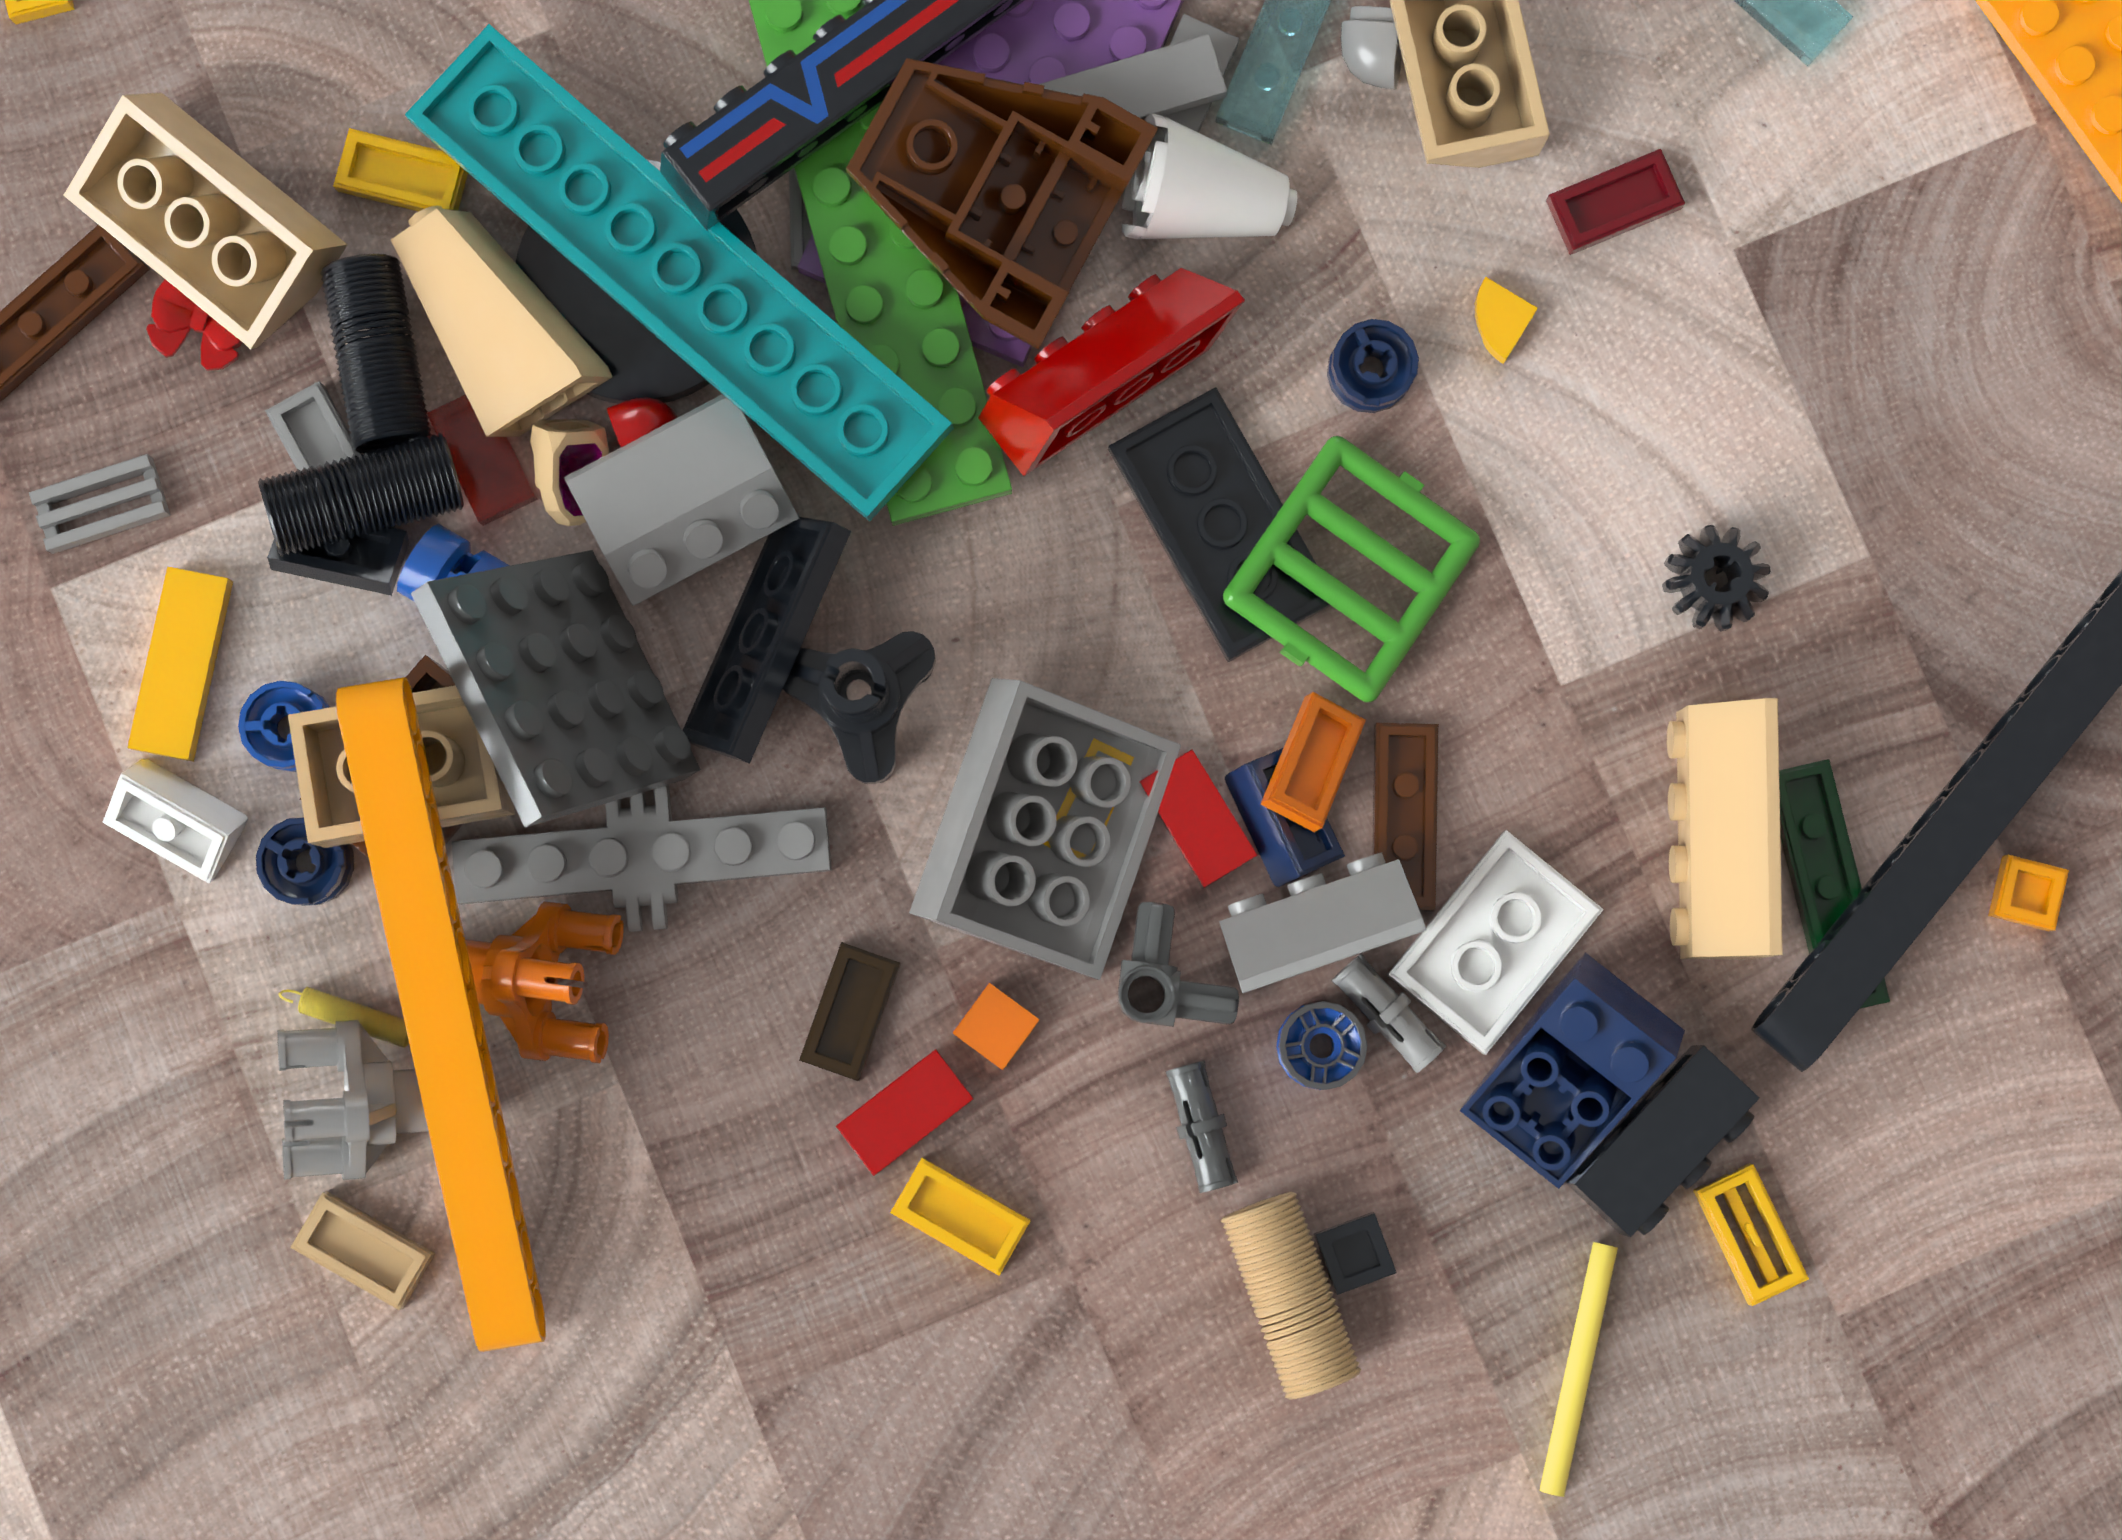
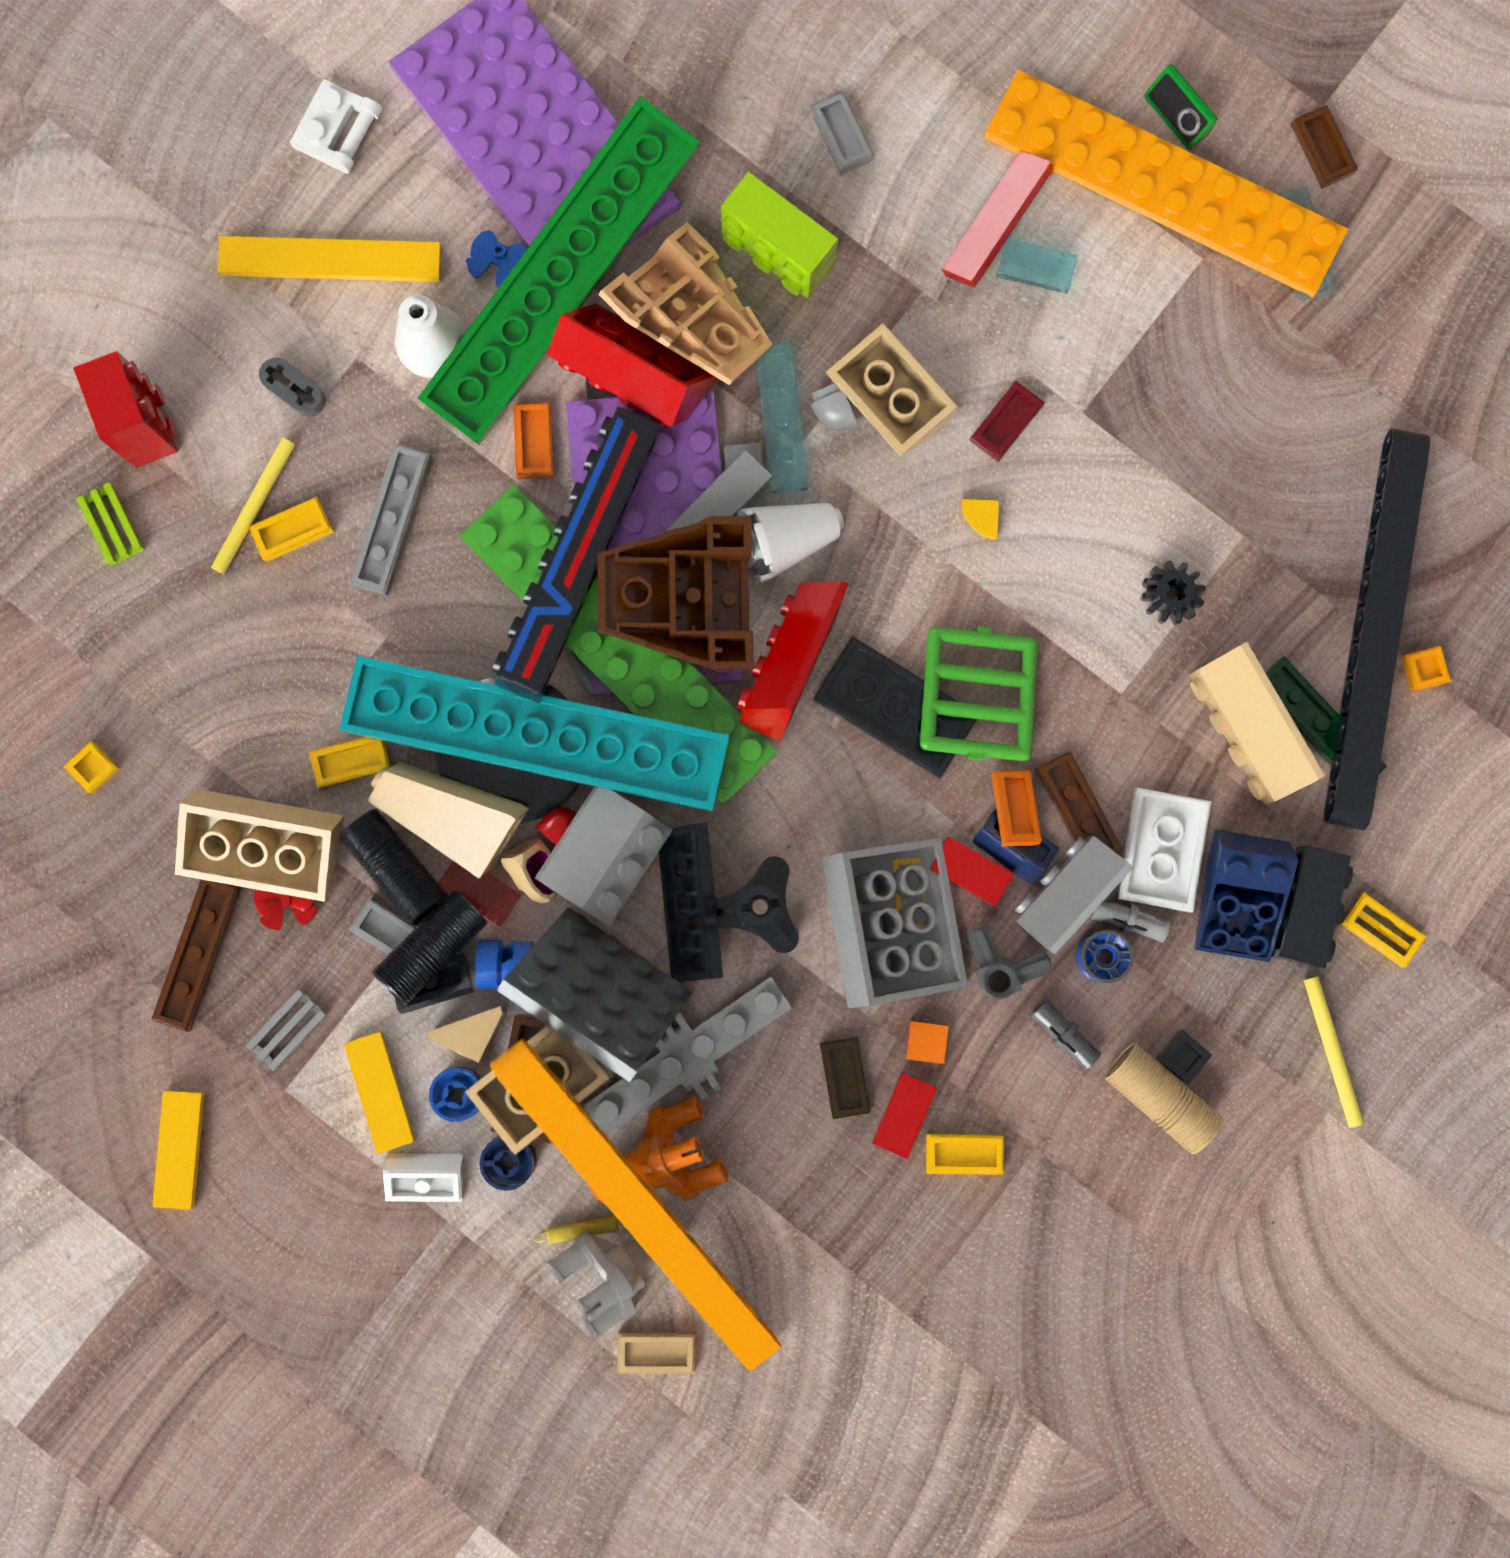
camera: 30 degrees left, 0 degrees up
(355, 651) = (471, 1035): none -> tan slope
(1367, 390) = (913, 578): dark blue wheel -> none

